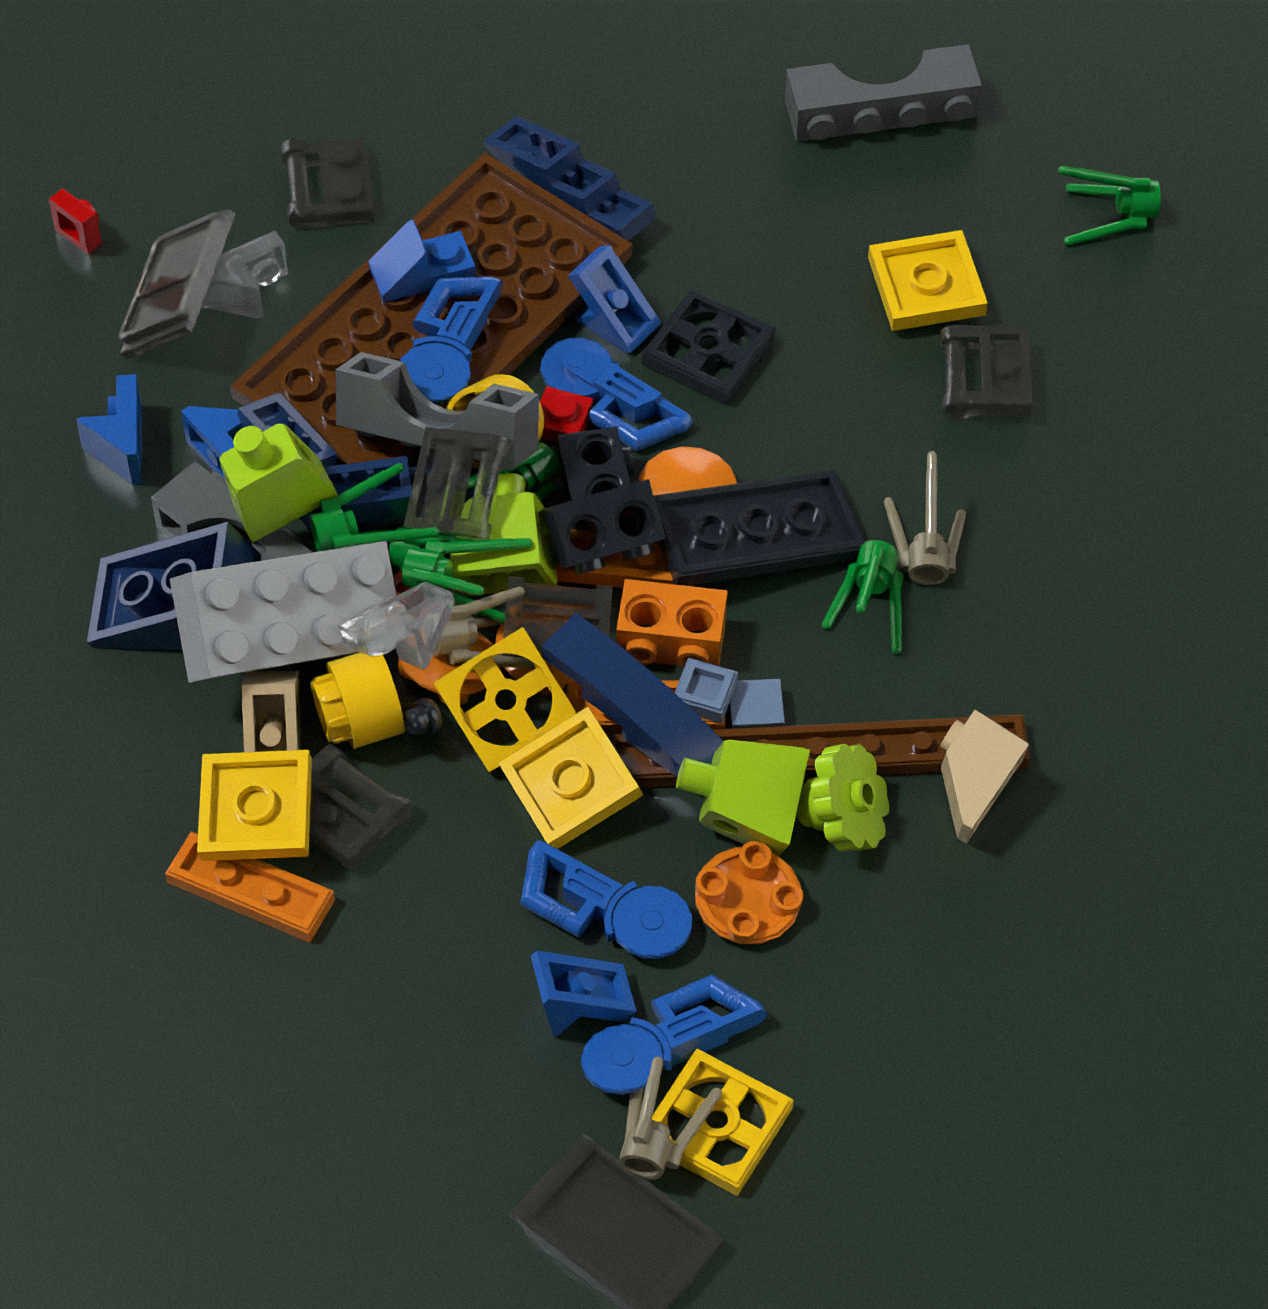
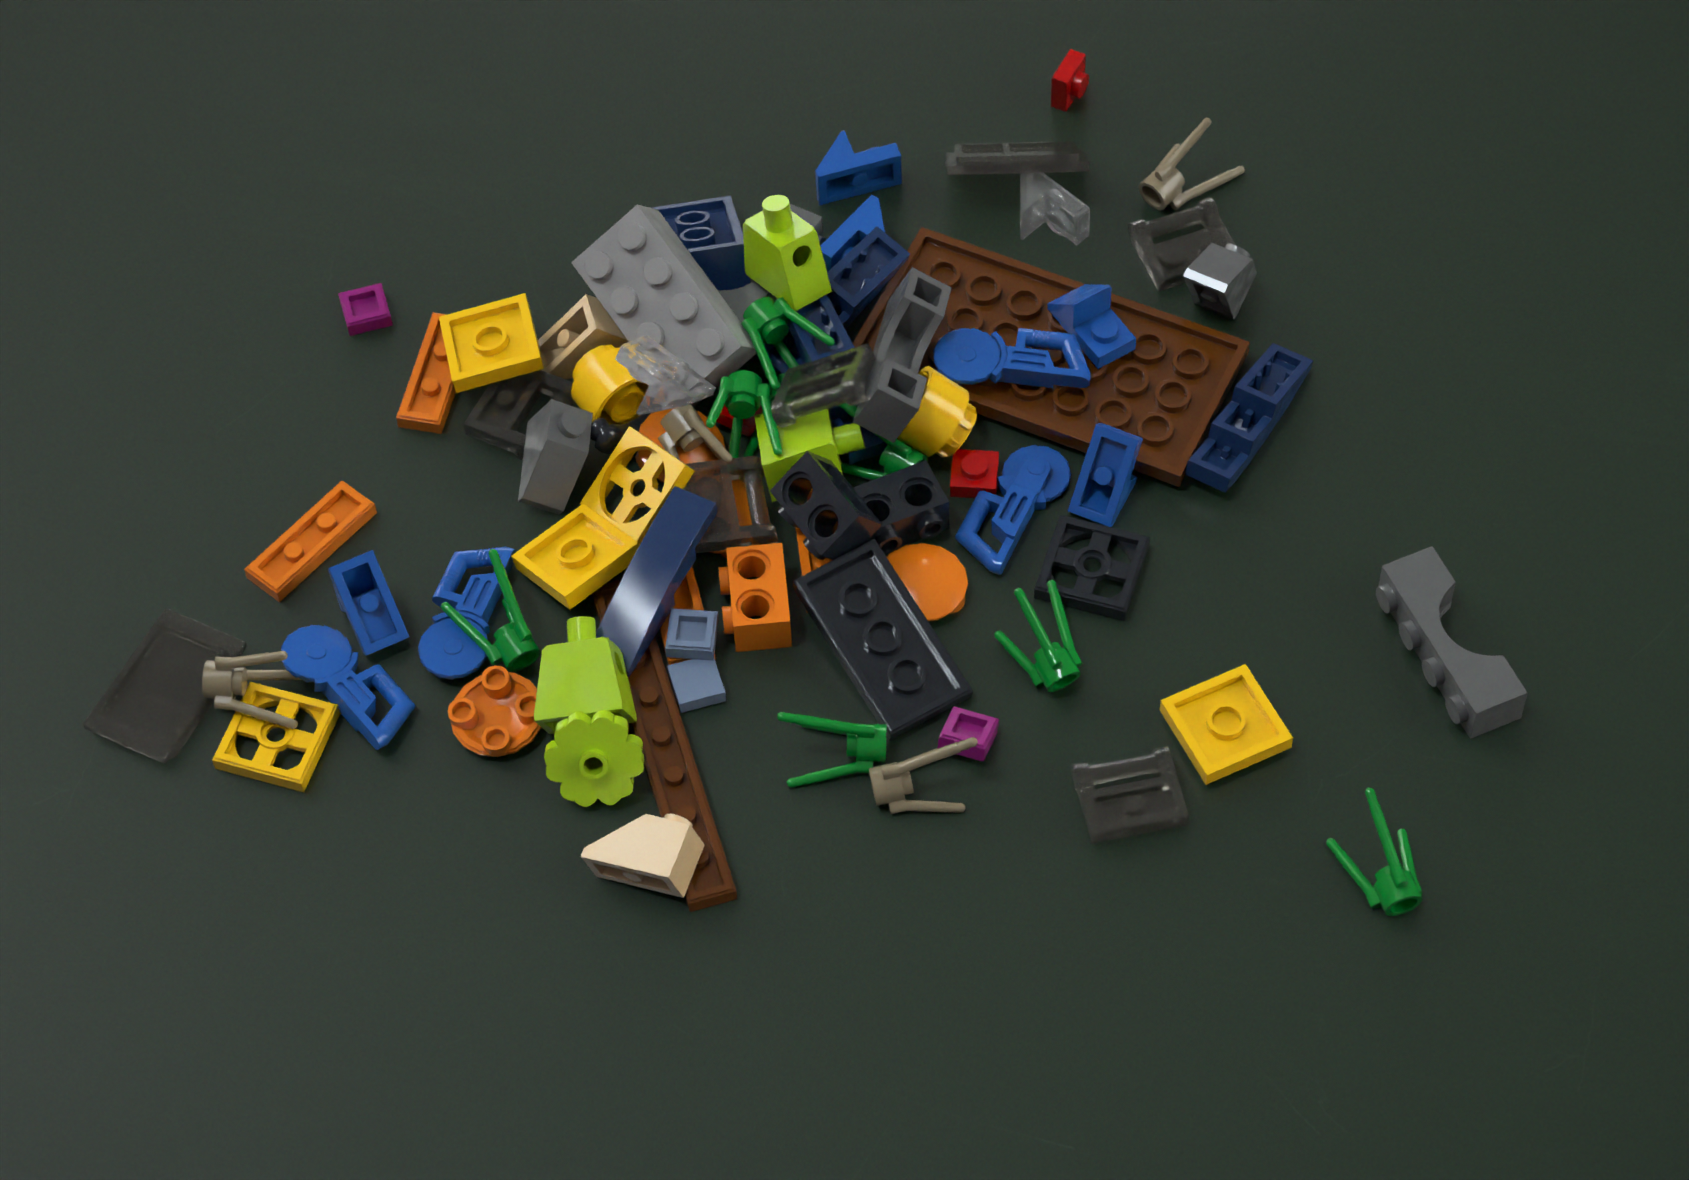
camera: 80 degrees right, 0 degrees up
(127, 947) = (365, 309): none -> magenta tile
(249, 175) = (1165, 183): none -> dark tan plant
(407, 148) = (1221, 278): none -> dark grey slope
(430, 771) = (554, 455): none -> dark grey slope
(452, 1052) = (310, 541): none -> orange tile
(671, 858) = (513, 640): none -> green plant
(822, 394) = (1054, 665): none -> green plant
(883, 484) = (967, 724): none -> magenta tile

